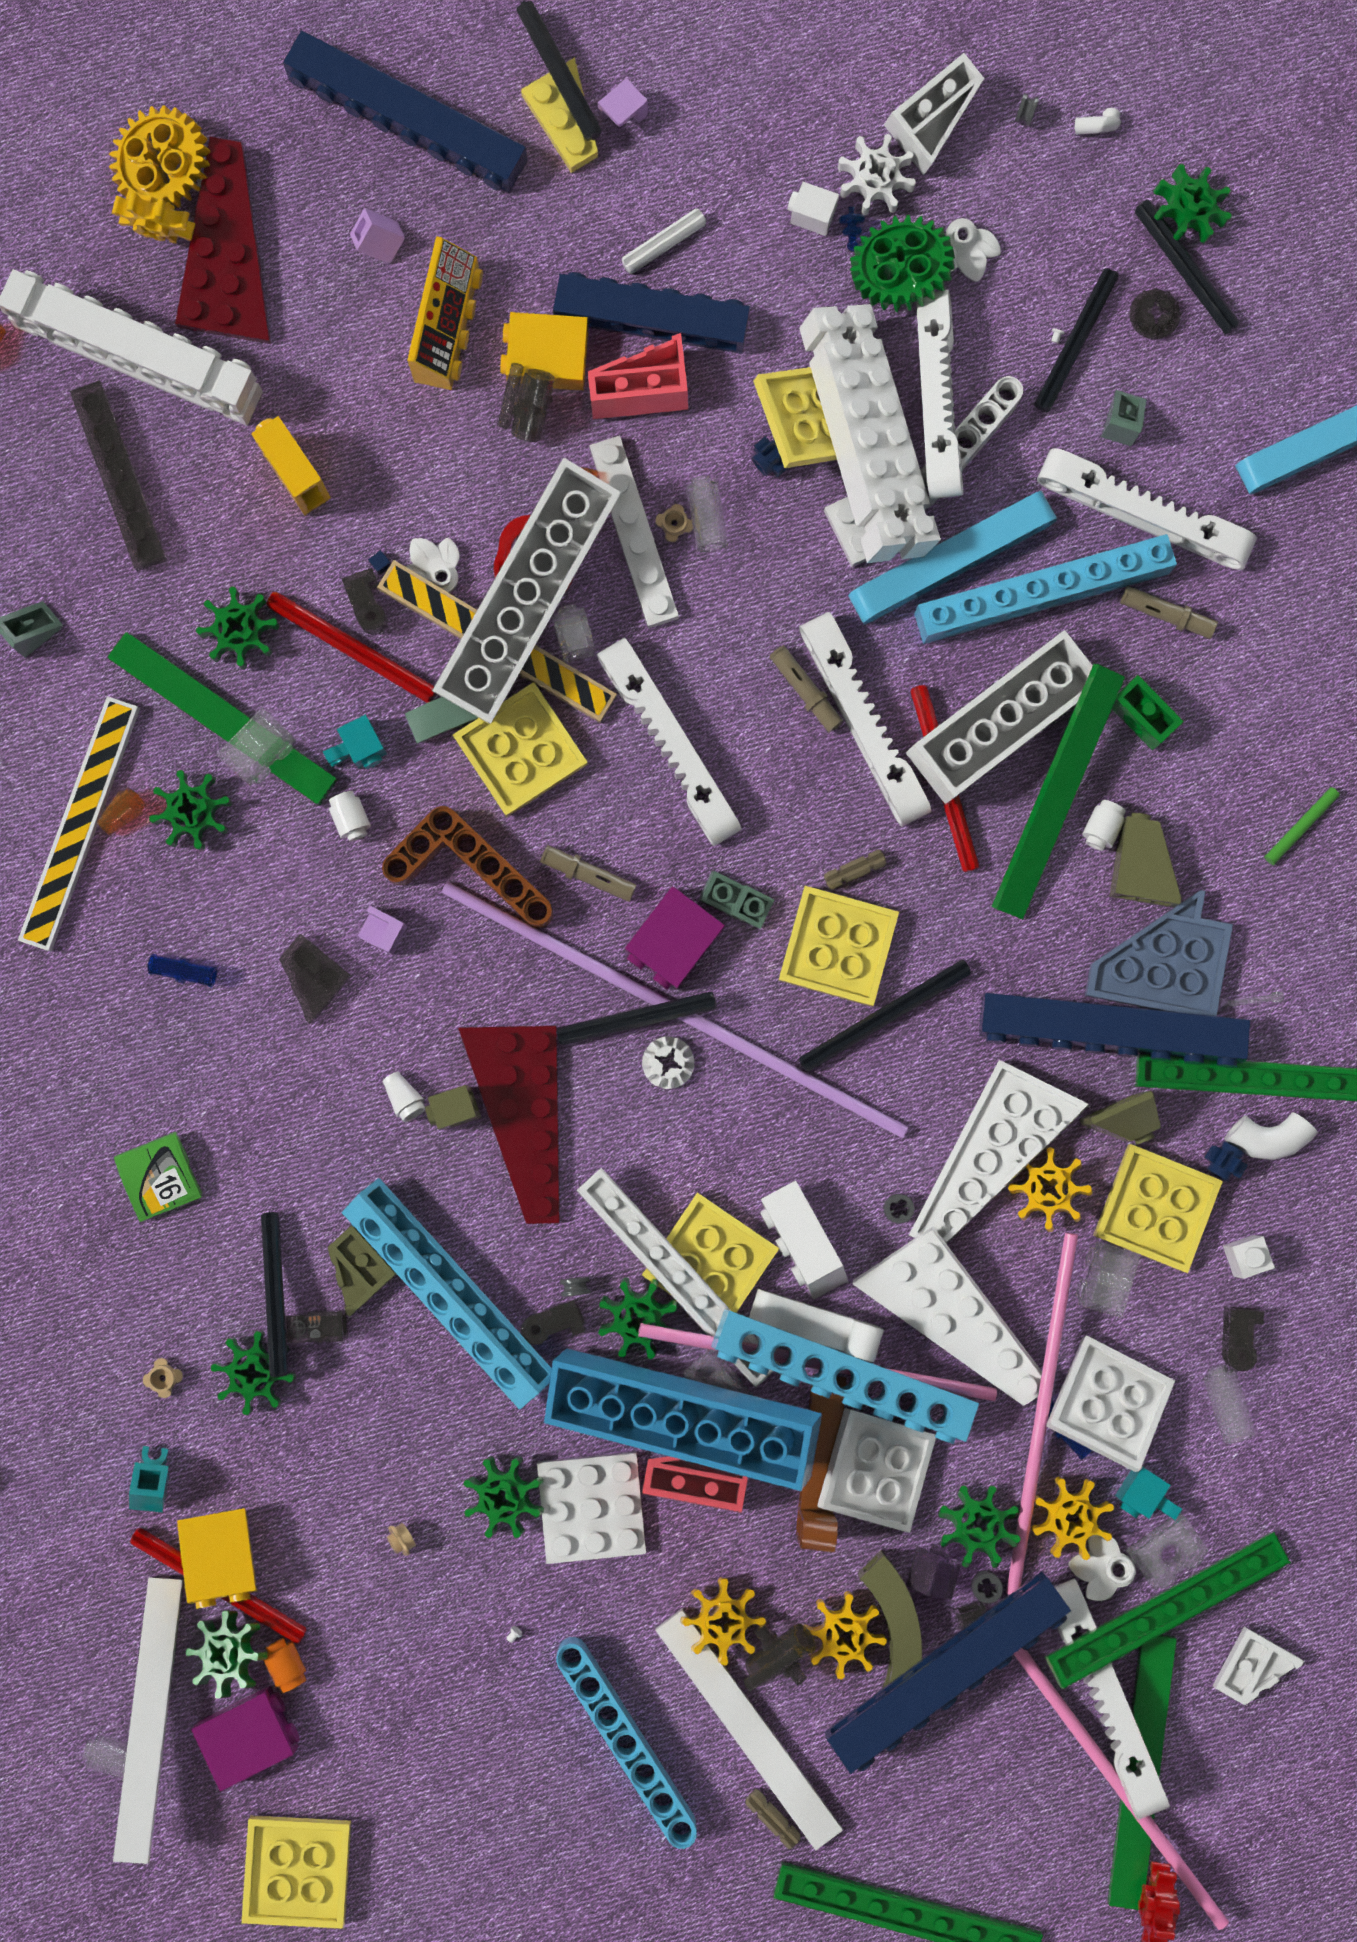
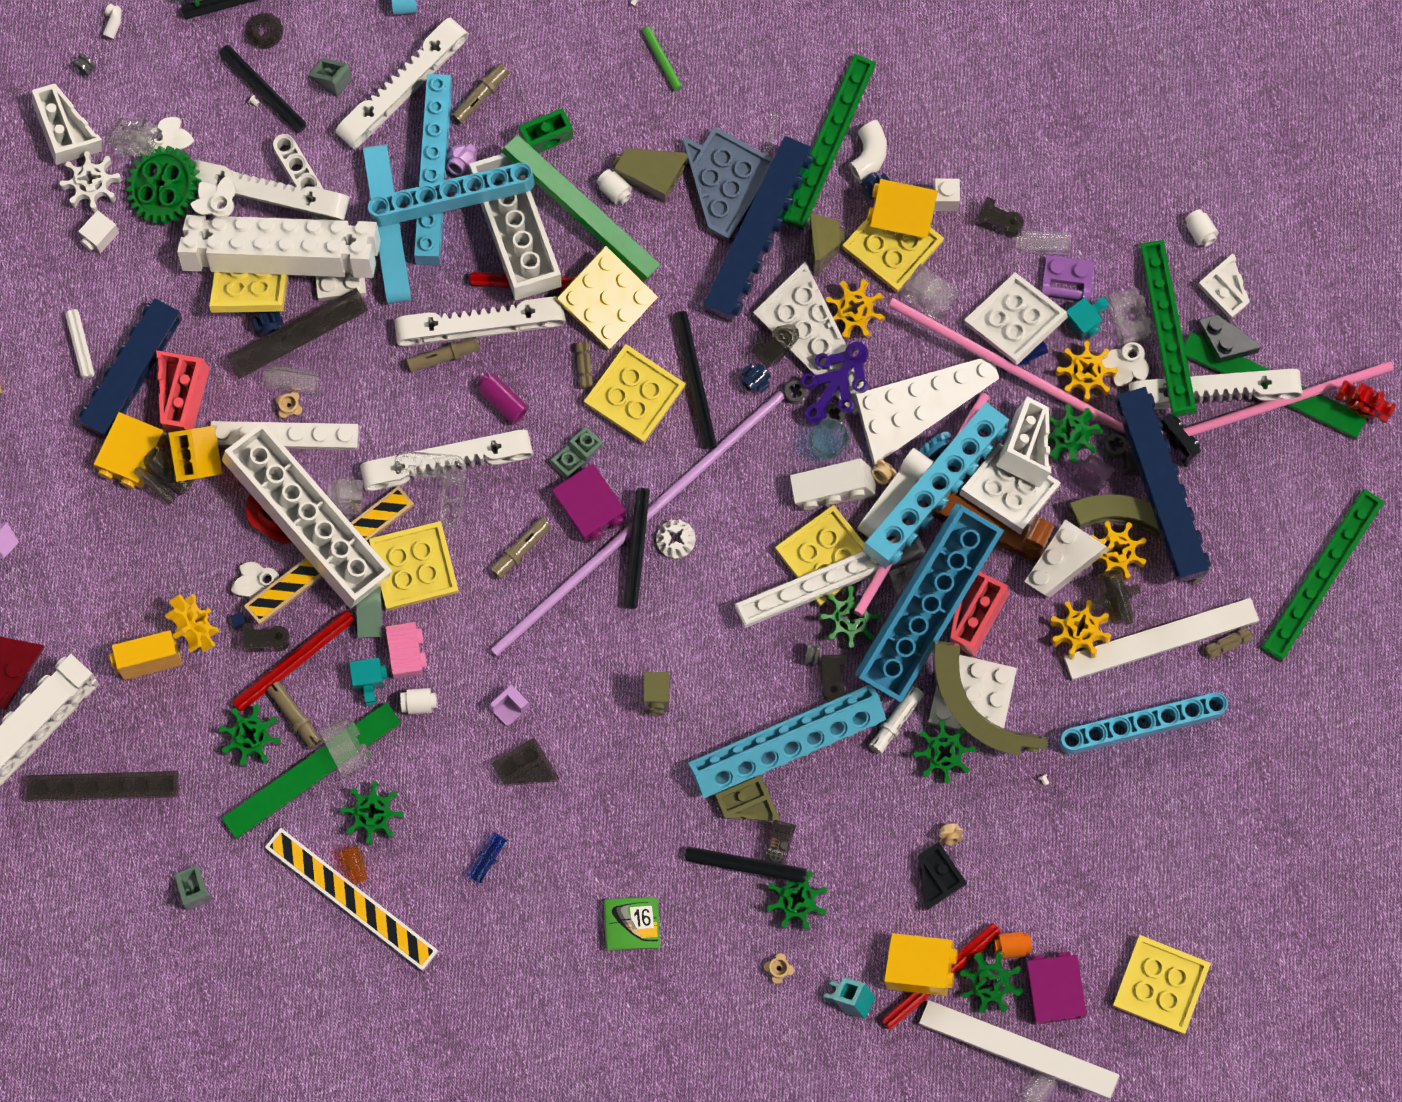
camera: 70 degrees left, 10 degrees down
(284, 670) = (300, 723): none -> dark tan pin
(342, 1540) = (938, 876): none -> black wing
(348, 504) = (192, 623): none -> yellow gear
(404, 1098) = (637, 729): white cone -> none
(408, 777) = (405, 650): none -> bright pink brick
(444, 315) = (77, 512): slope -> none
(474, 860) = (484, 624): dark orange beam -> none
(520, 1092) = (657, 645): dark red wing -> none
(522, 1420) = (891, 727): none -> white pin
(546, 1530) = (949, 683): none -> olive arch
(561, 426) = (195, 453): none -> yellow brick
(643, 750) = (448, 478): none -> clear beam
(769, 499) = (297, 333): none -> clear smoke plate
(774, 782) = (502, 398): none -> magenta brick
(809, 1576) = (1064, 559): none -> white wedge
(844, 1298) = (883, 472): none -> tan plate
(851, 231) = (123, 212): clear blue hair -> none
(862, 1213) = (828, 439): none -> clear light blue hair
(901, 1355) = (936, 445): none -> dark azure gear
(904, 328) = (215, 196): none -> white plate
(911, 1092) = (755, 378): none -> dark blue gear
(917, 1157) = (787, 393): none -> dark grey bush
(942, 1473) = (1026, 443): none -> white wedge
(943, 1200) = (838, 380): none -> dark purple plant
(949, 202) = (134, 137): none -> clear brick
(951, 866) = (606, 298): none -> light yellow plate
(969, 1109) = (777, 347): none -> clear smoke leg
(1011, 605) = (440, 190): none -> medium azure beam
(1022, 1669) = (1179, 439): none -> black wing
(1071, 617) = (460, 158): none -> lavender rock
(1182, 1688) = (1226, 339): none -> wing
(1201, 1451) = (1069, 272): none -> medium lavender plate
(1205, 1208) = (902, 208): none -> yellow brick
(1324, 1608) = (1201, 228): none -> white brick

